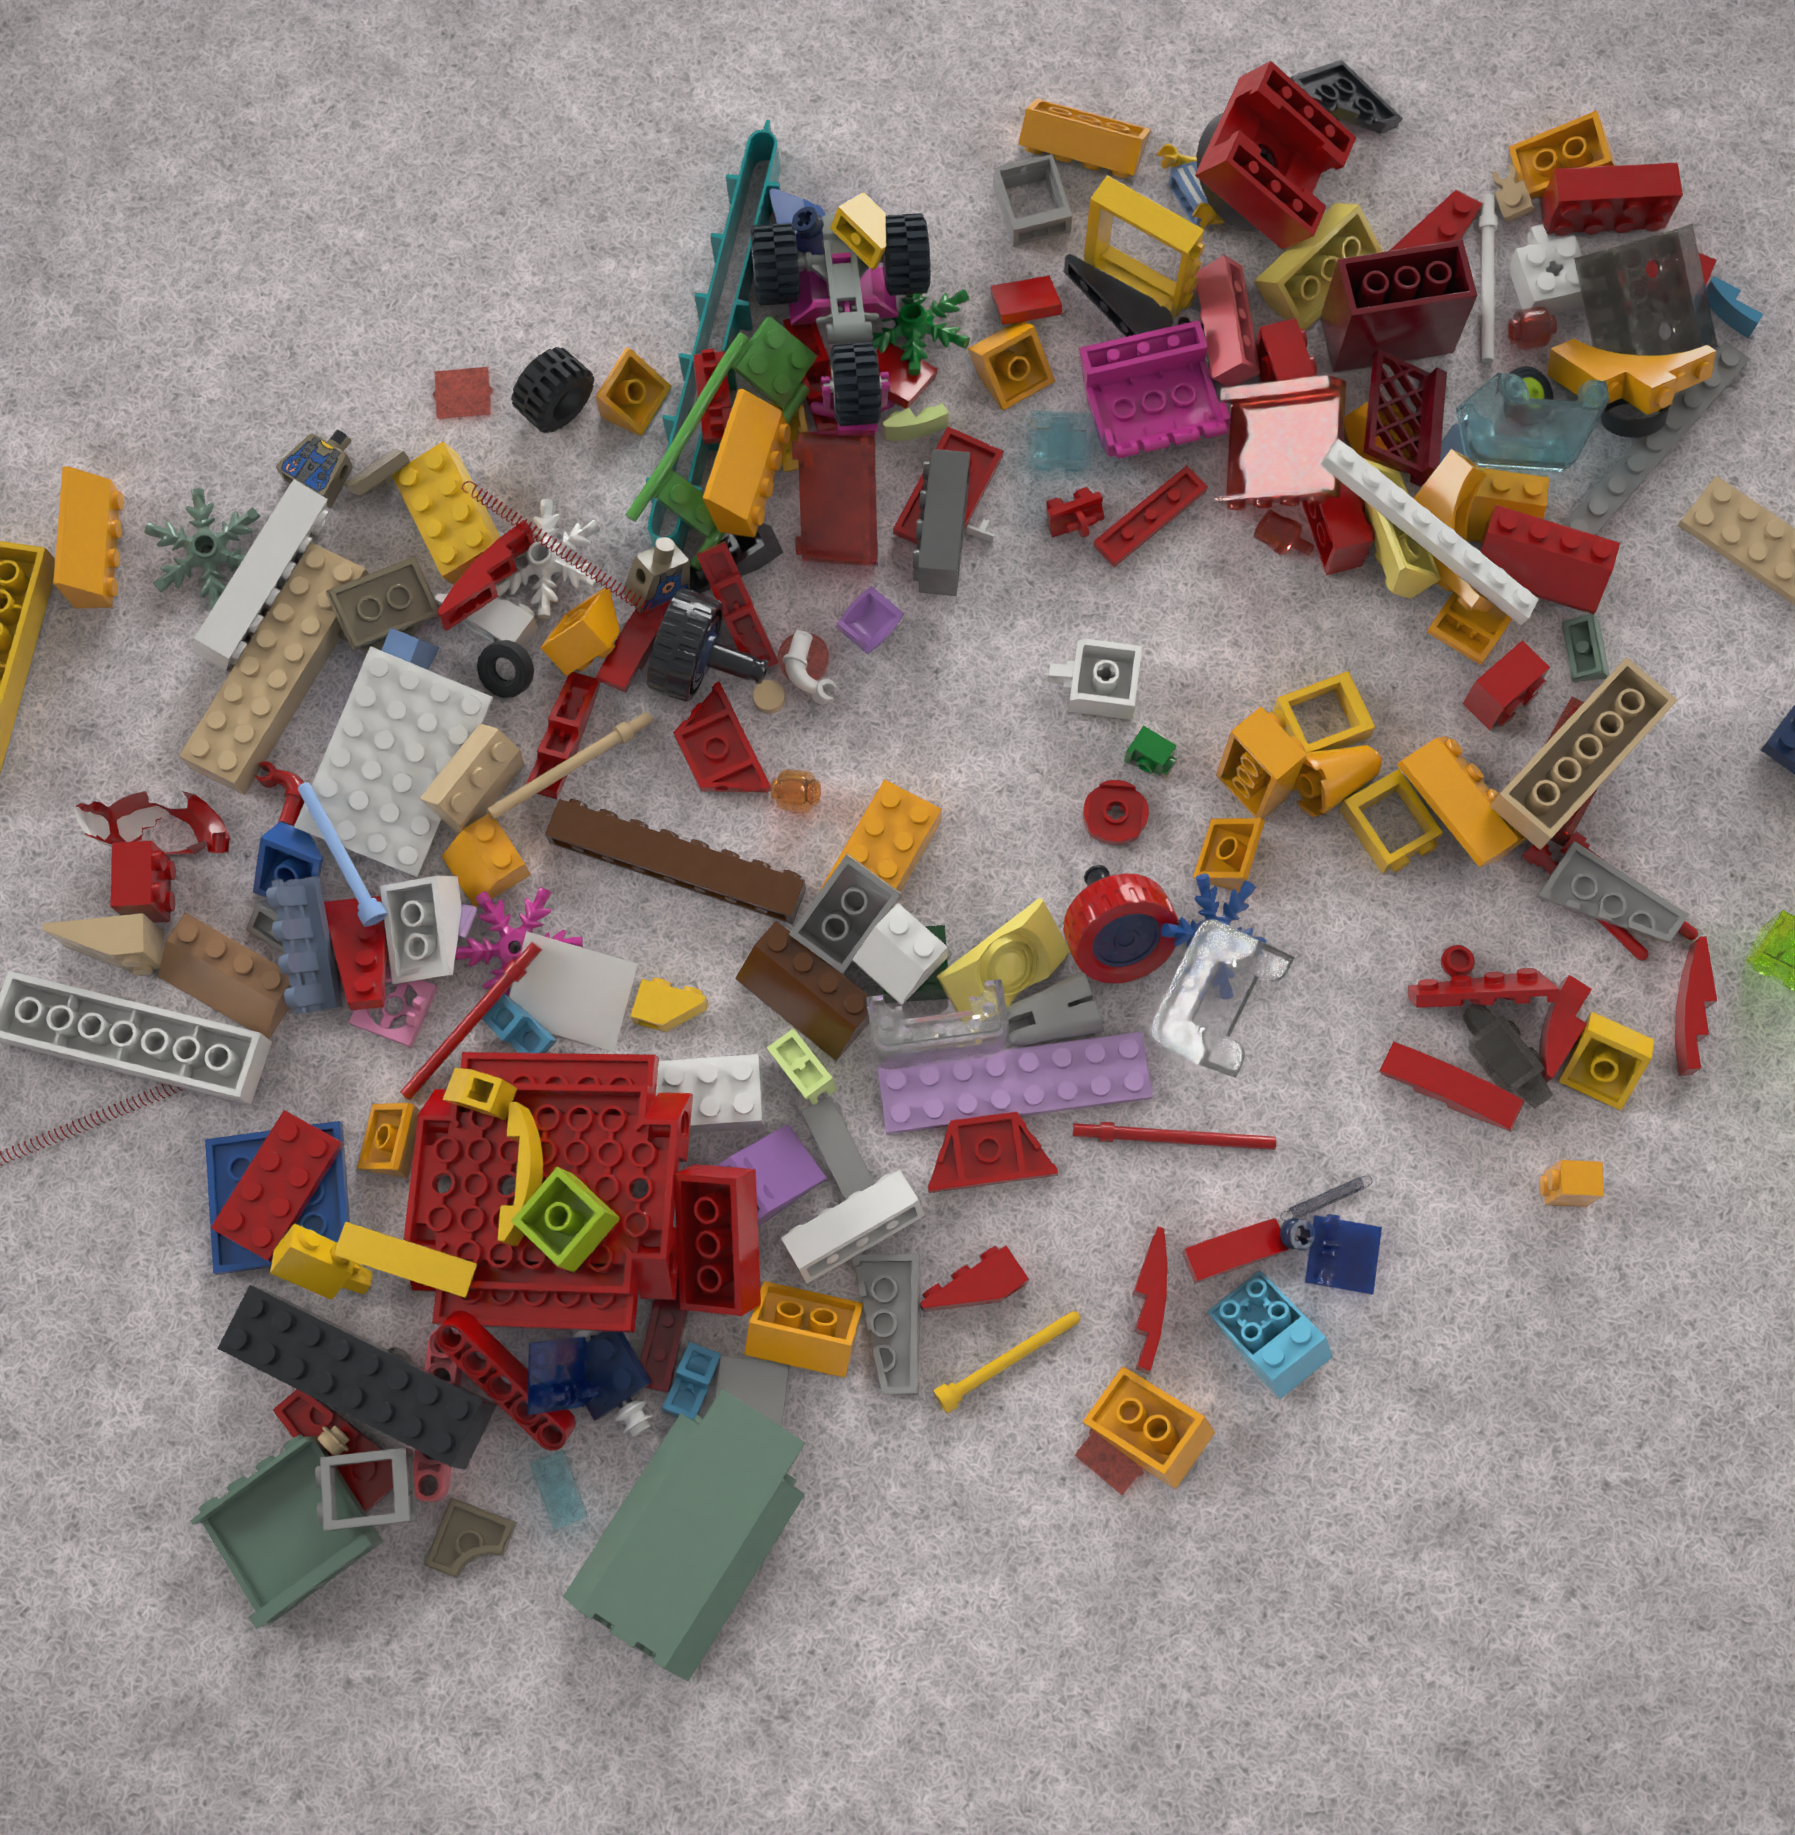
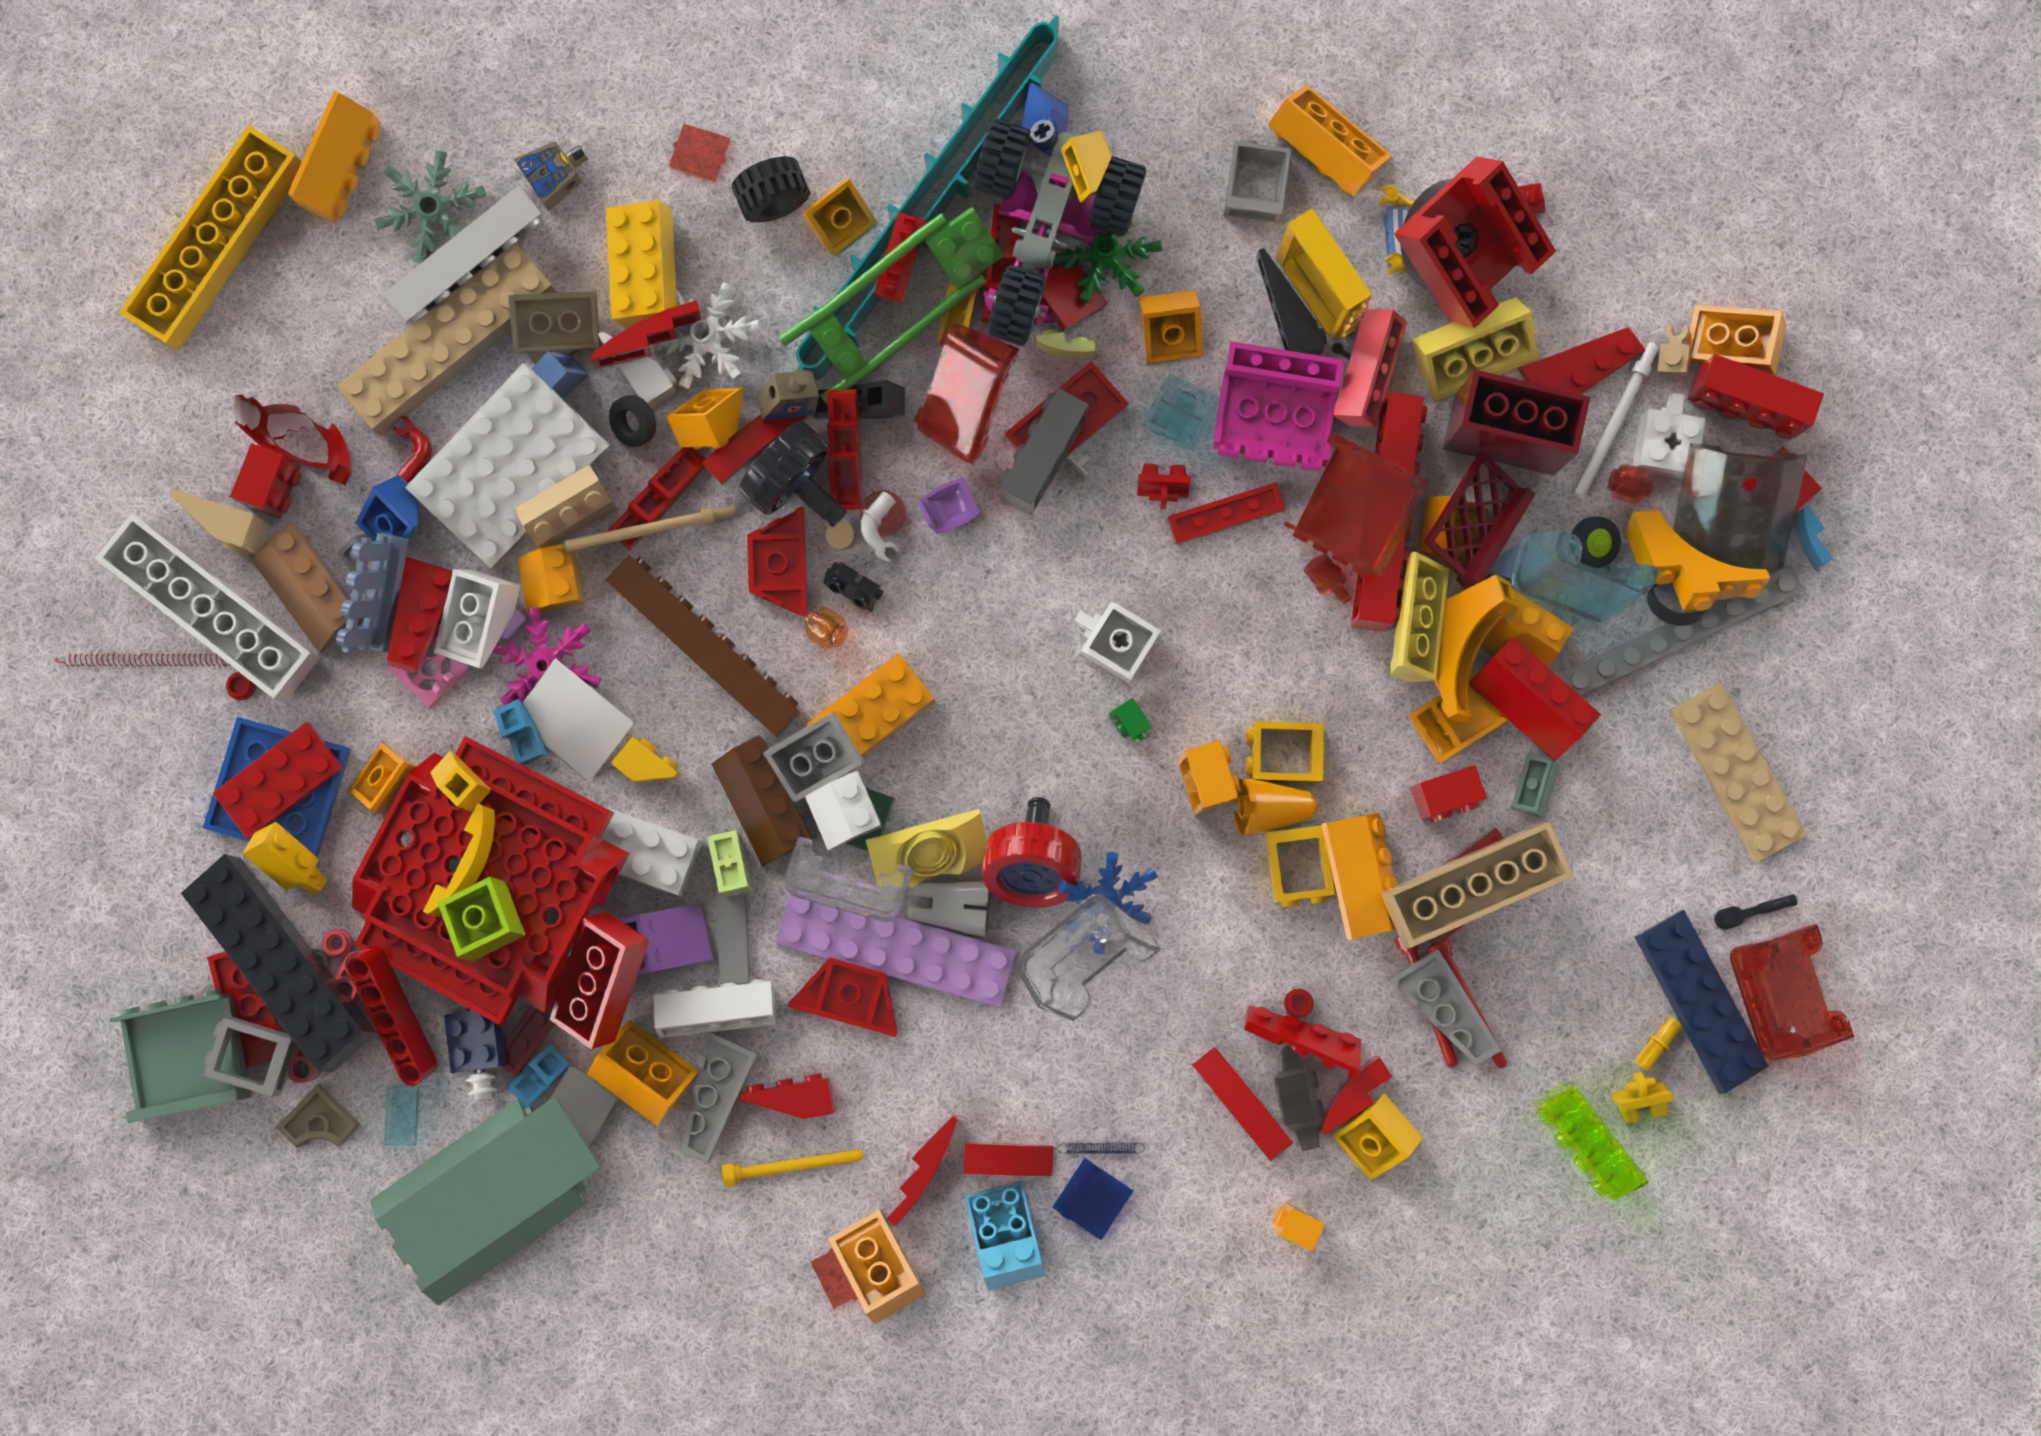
camera: 20 degrees right, 10 degrees up
(195, 1108) = (240, 687): none -> red plate
(334, 1440) = (242, 1004): tan plate -> none
(369, 909) = (437, 584): light blue piece -> none
(377, 472) = (595, 200): dark tan tile -> none
(400, 1335) = (328, 947): none -> coral plate
(405, 1259) = (349, 889): yellow slope -> none
(513, 972) = (531, 687): red bar -> none
(558, 1376) = (432, 1031): clear blue hinge -> none
(563, 550) = (716, 343): red piece -> none
(746, 465) = (898, 333): light orange slope -> none
(791, 739) = (841, 581): none -> black hinge
(1026, 300) = (1209, 273): red tile -> none
(1108, 1132) = (952, 1020): red bar -> none
(1129, 800) = (1063, 765): red plate -> none
(1229, 851) = (1154, 832): light orange slope -> none
(1290, 1227) = (1069, 1173): dark blue bush -> none
(1348, 97) = (1571, 200): black plate -> none
(1429, 531) = (1440, 639): white plate -> none
(1694, 996) = (1476, 1114): red slope -> none

